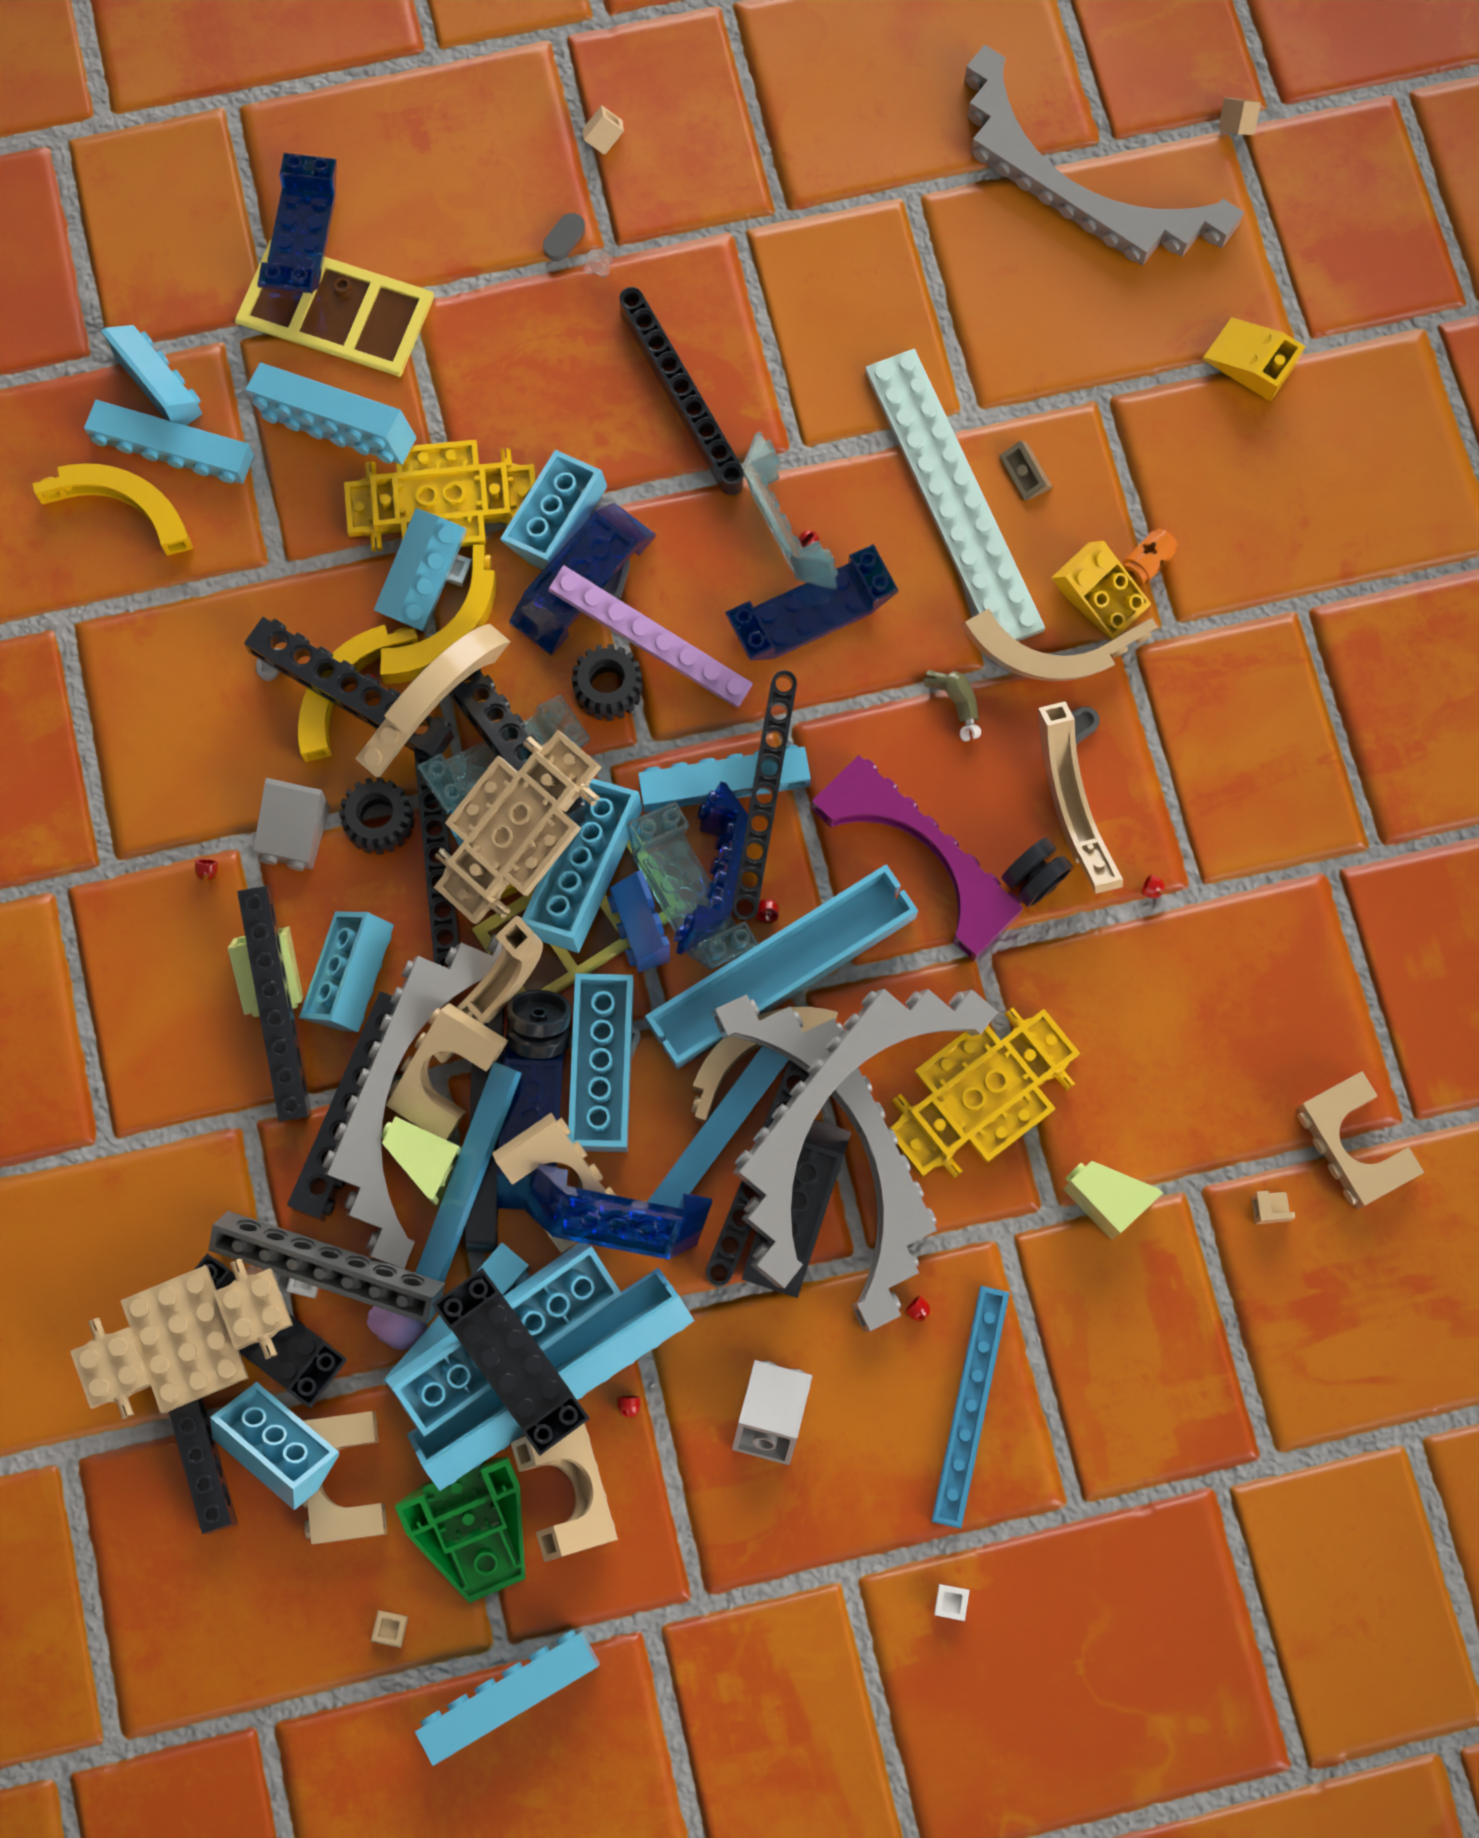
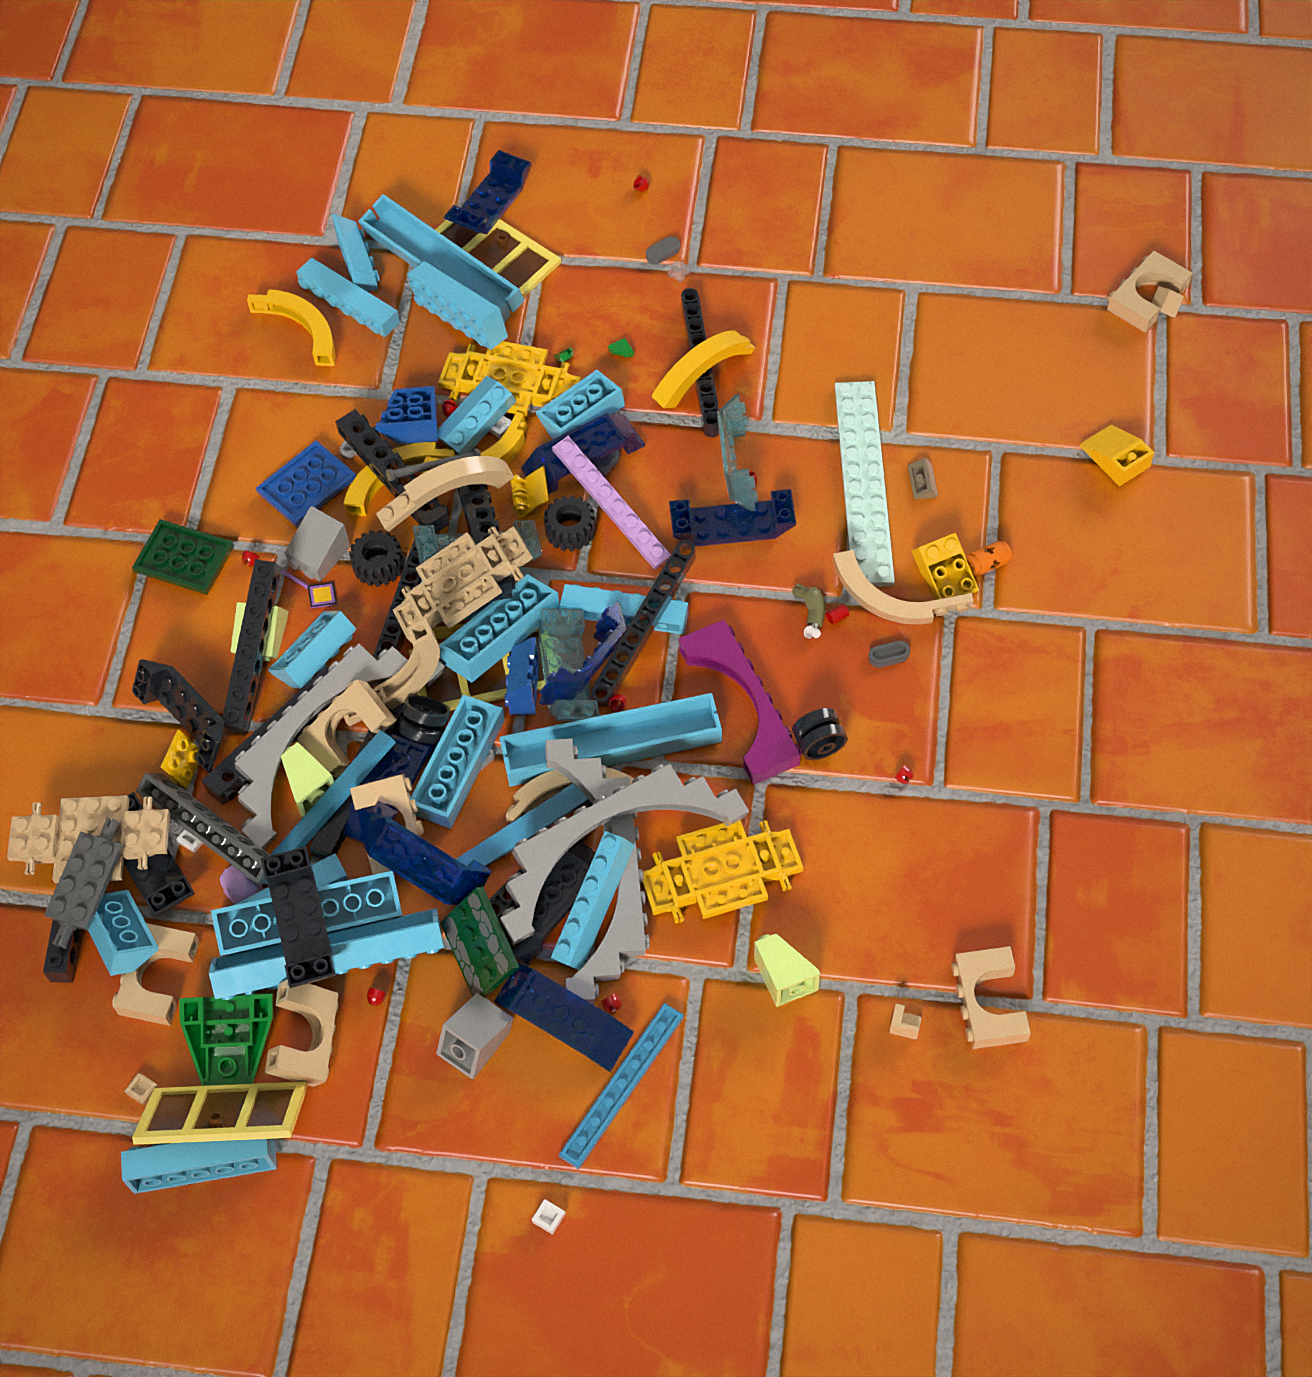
camera: 25 degrees right, 15 degrees down
(115, 897) = (183, 556): none -> dark green plate
(207, 1404) = (84, 881): none -> dark grey plate
(221, 1111) = (166, 684): none -> black slope
(233, 737) = (305, 482): none -> blue plate
(248, 1185) = (180, 760): none -> yellow hinge
(252, 337) = (419, 242): none -> medium azure piece
(321, 887) = (319, 594): none -> piece
(337, 597) = (410, 416): none -> blue wedge
(357, 700) = (392, 474): none -> dark grey bar
(377, 567) = (449, 407): none -> red hinge
(495, 140) = (641, 183): none -> red hinge
(498, 437) = (564, 355): none -> green tile
(511, 1632) = (221, 1113): none -> door
(538, 654) = (529, 492): none -> yellow hinge
(568, 402) = (621, 348): none -> green tile
(603, 130) = (716, 194): tan panel -> none
(685, 400) = (697, 362): none -> yellow arch
(735, 1300) = (479, 943): none -> dark green plate
(852, 1195) = (593, 901): none -> medium azure brick
(868, 1350) = (565, 1016): none -> clear blue slope
(991, 696) = (837, 614): none -> red hinge
(1070, 800) = (867, 691): tan arch -> none
(1121, 226) = (1055, 347): light grey arch -> none
(1210, 74) = (1153, 270): none -> tan arch

